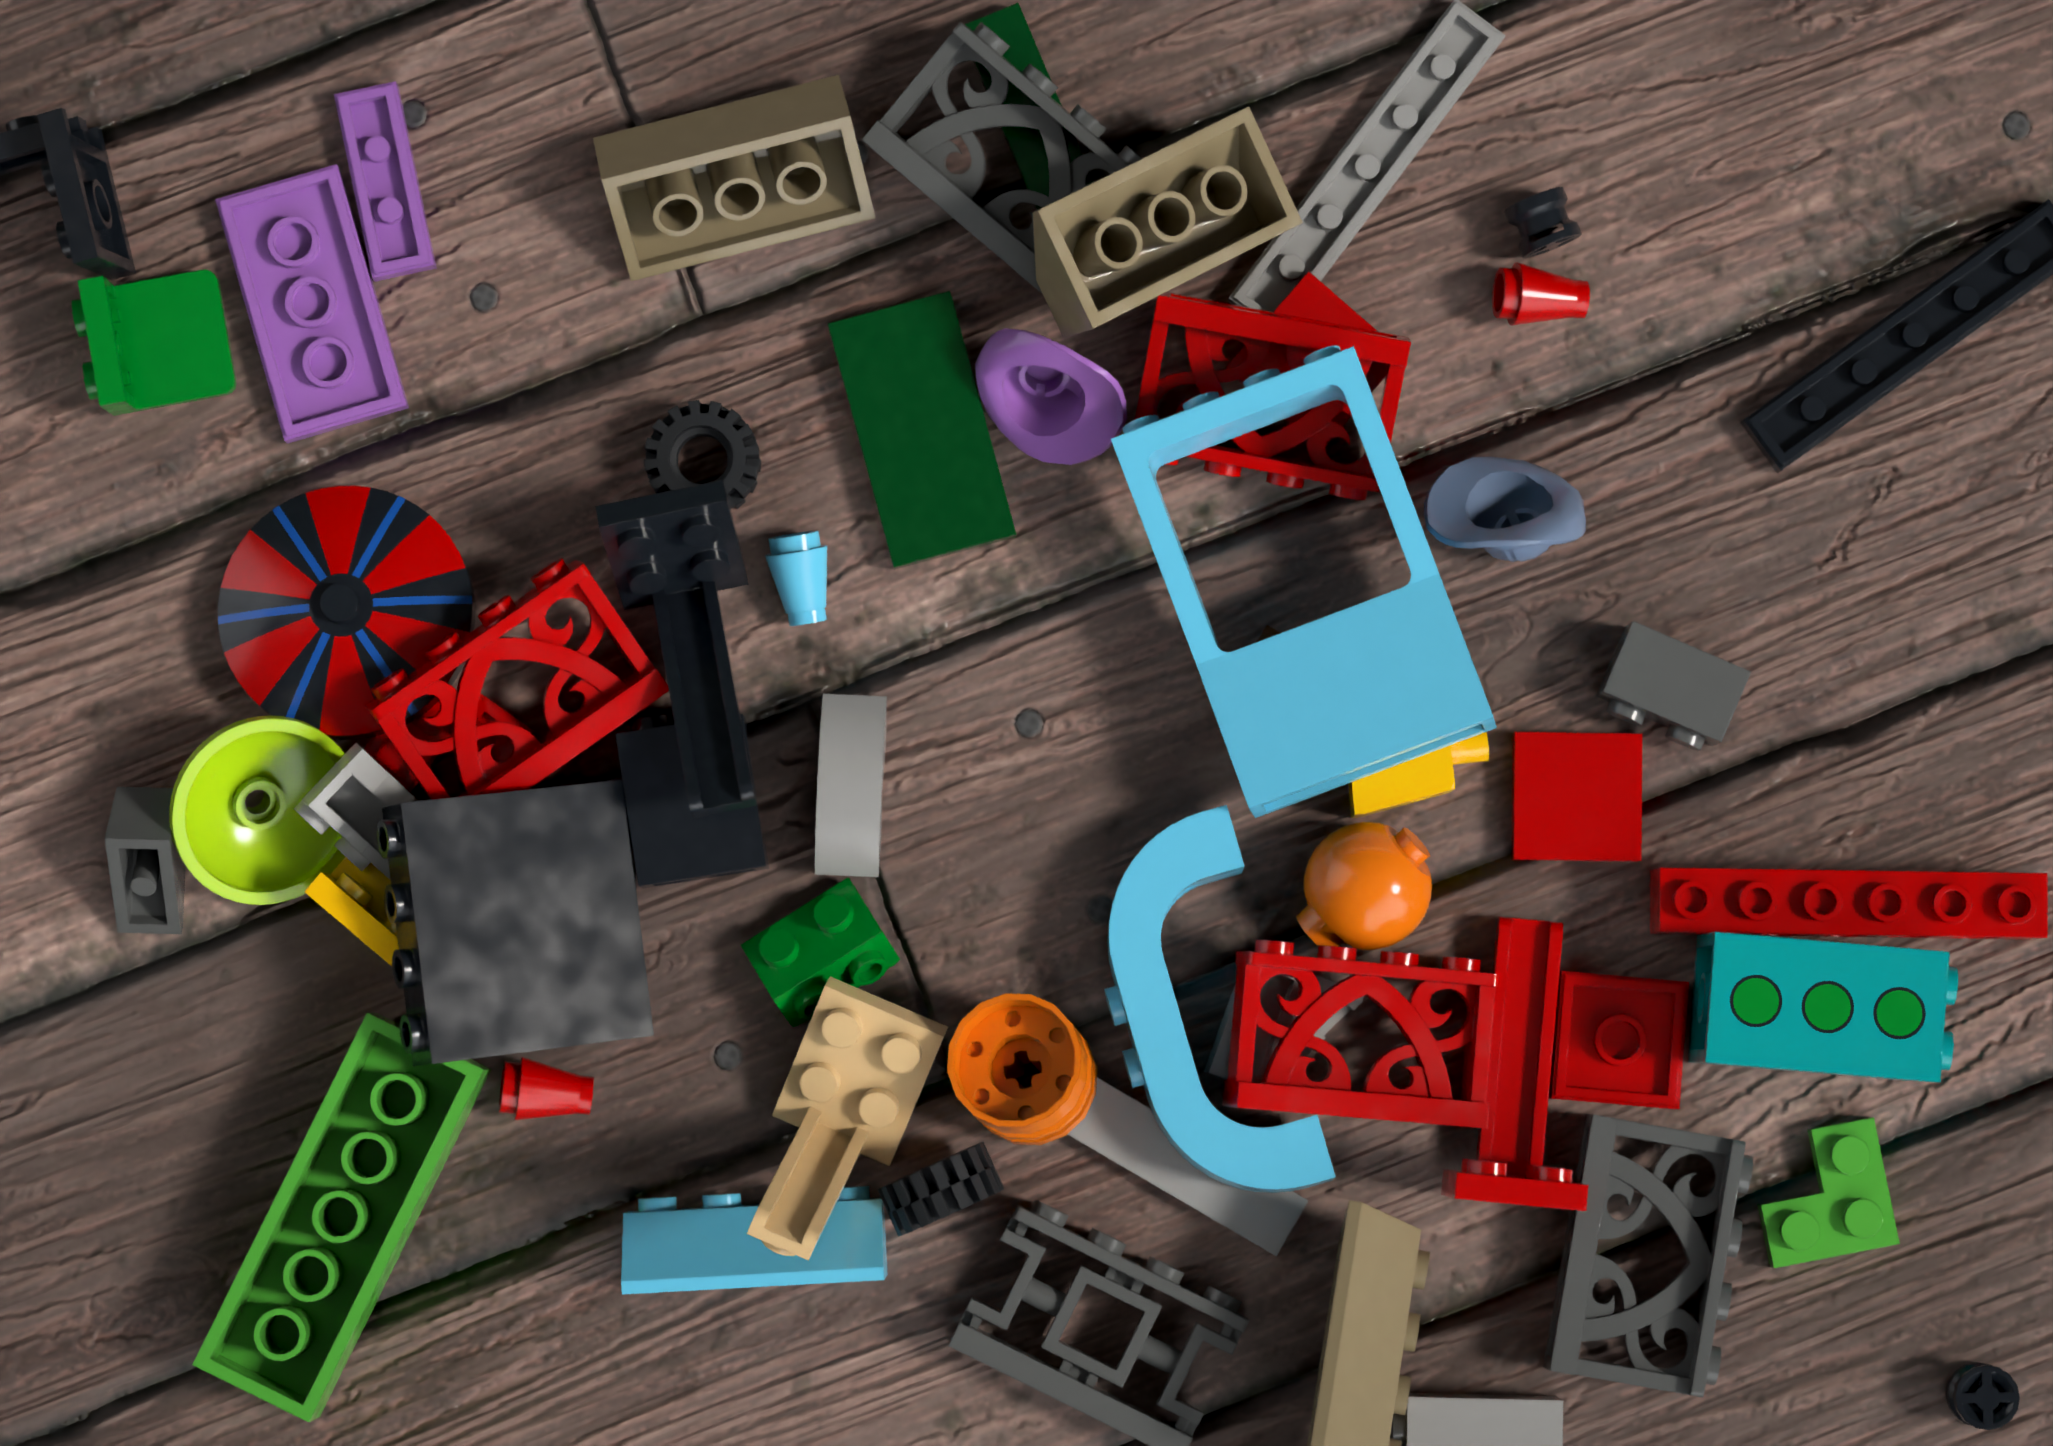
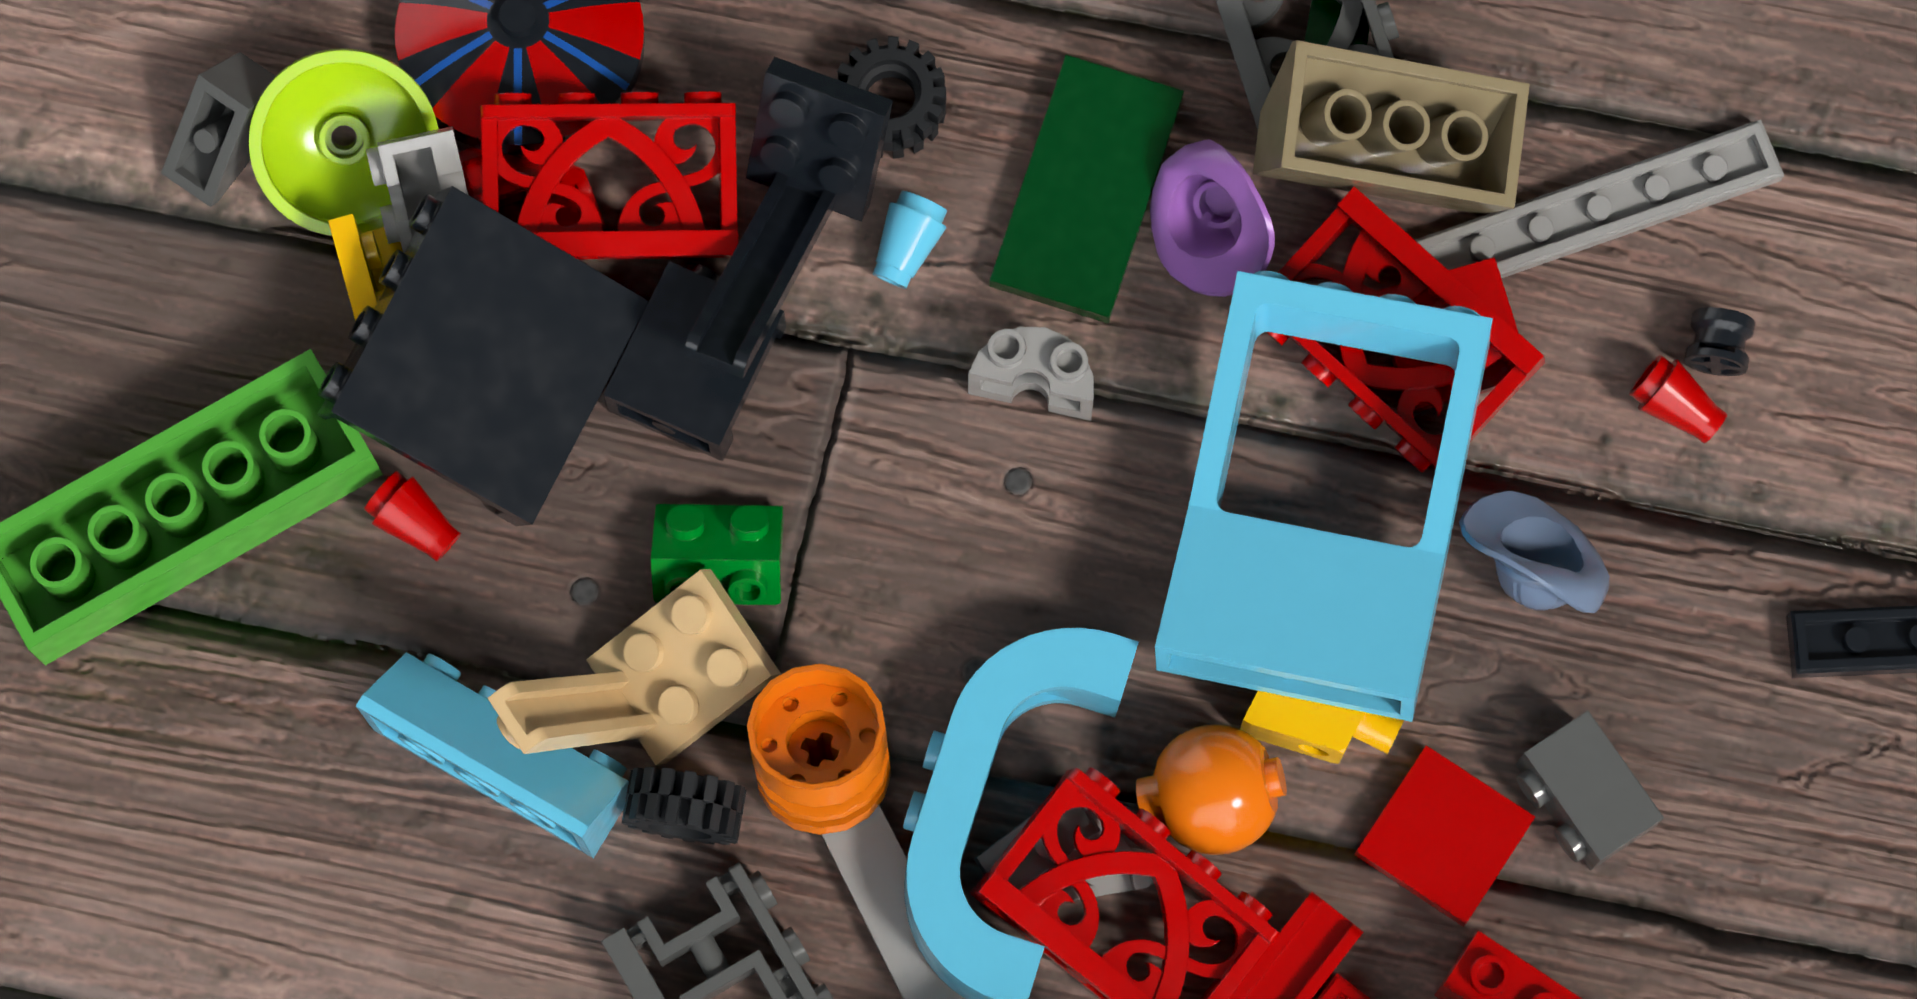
camera: 35 degrees right, 10 degrees down
(850, 785) = (832, 426): light grey brick -> none
(983, 613) = (1035, 361): none -> light grey cylinder

